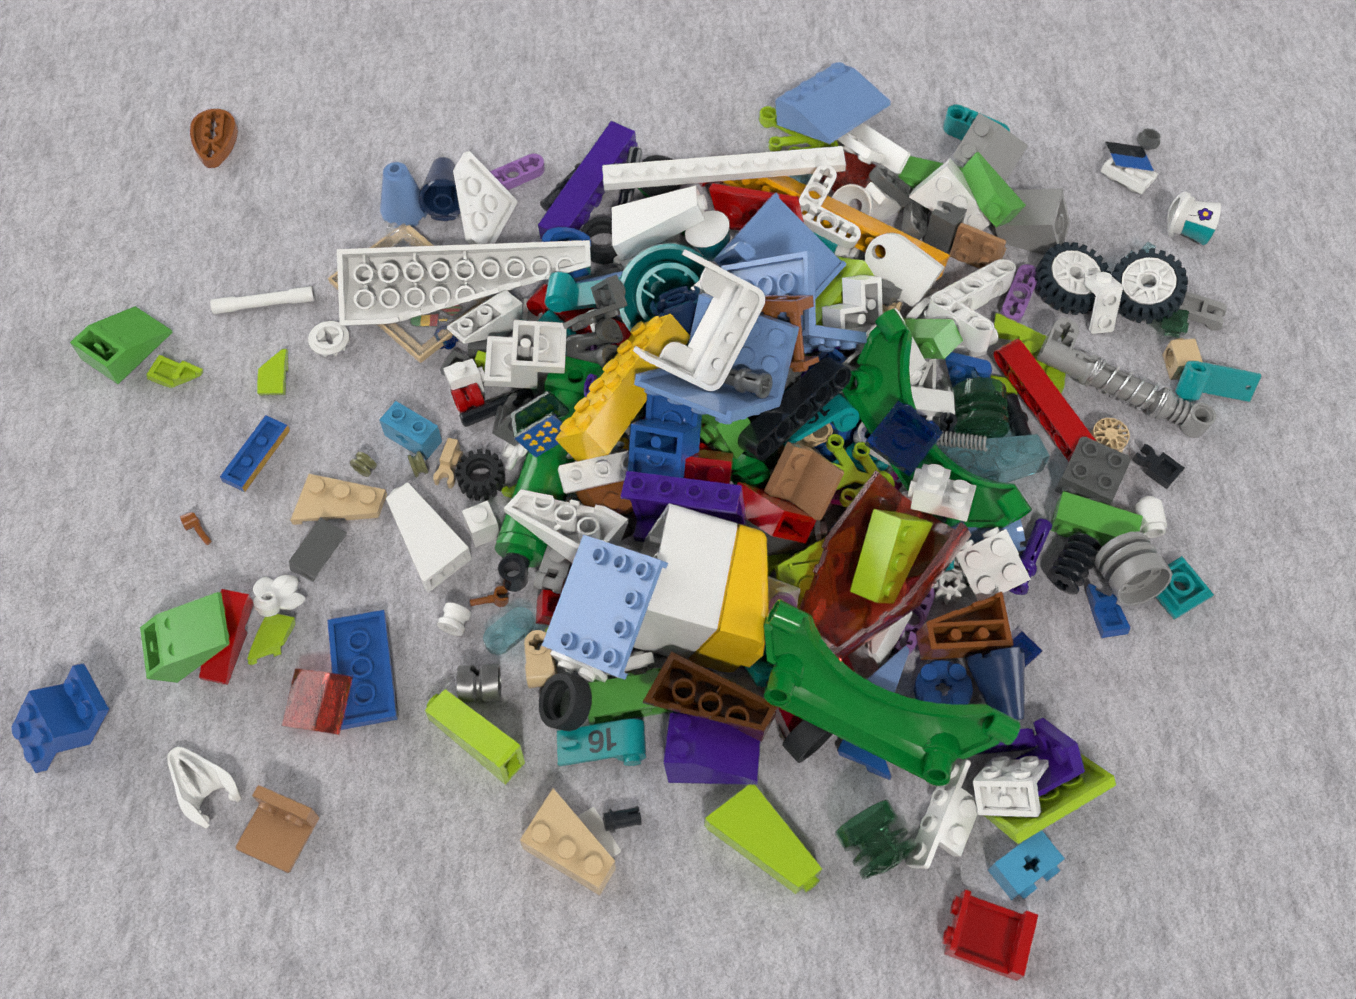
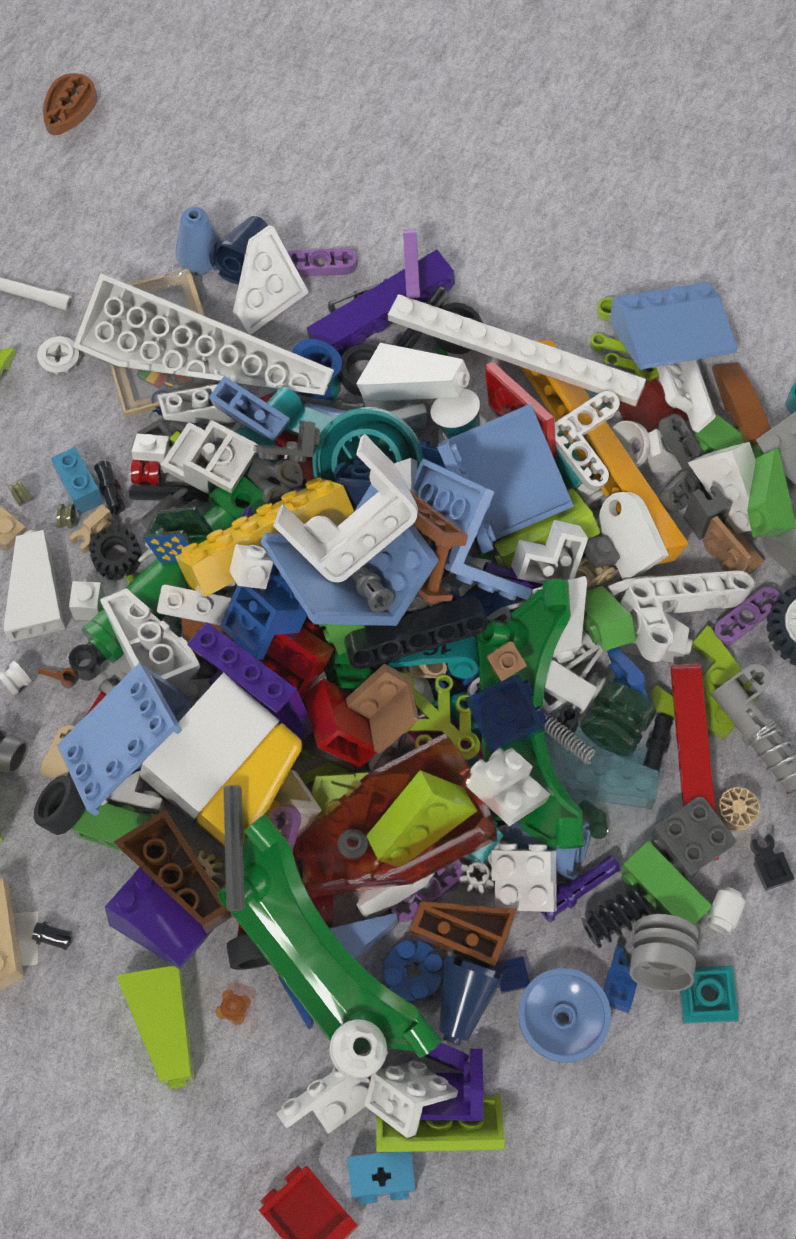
camera: 30 degrees right, 5 degrees up
(444, 423) = (109, 487): none -> black pin
(507, 630) = (56, 711): clear light blue plate -> none
(538, 300) = (248, 409): none -> medium blue slope
(599, 137) = (411, 263): none -> medium lavender beam
(615, 739) = (77, 859): teal door -> none
(637, 408) = (250, 566): none -> white brick
(764, 644) = (234, 848): none -> dark grey axle
(810, 802) = (236, 1015): none -> clear orange plate
(841, 612) = (352, 852): none -> dark grey plate
(876, 840) = (254, 1078): clear green wheel -> none
(881, 397) = (506, 661): none -> medium nougat bracket
(916, 139) = (741, 401): none -> dark orange slope
(945, 774) = (347, 1060): none -> white piece
(1098, 646) = (576, 997): none -> medium blue dish

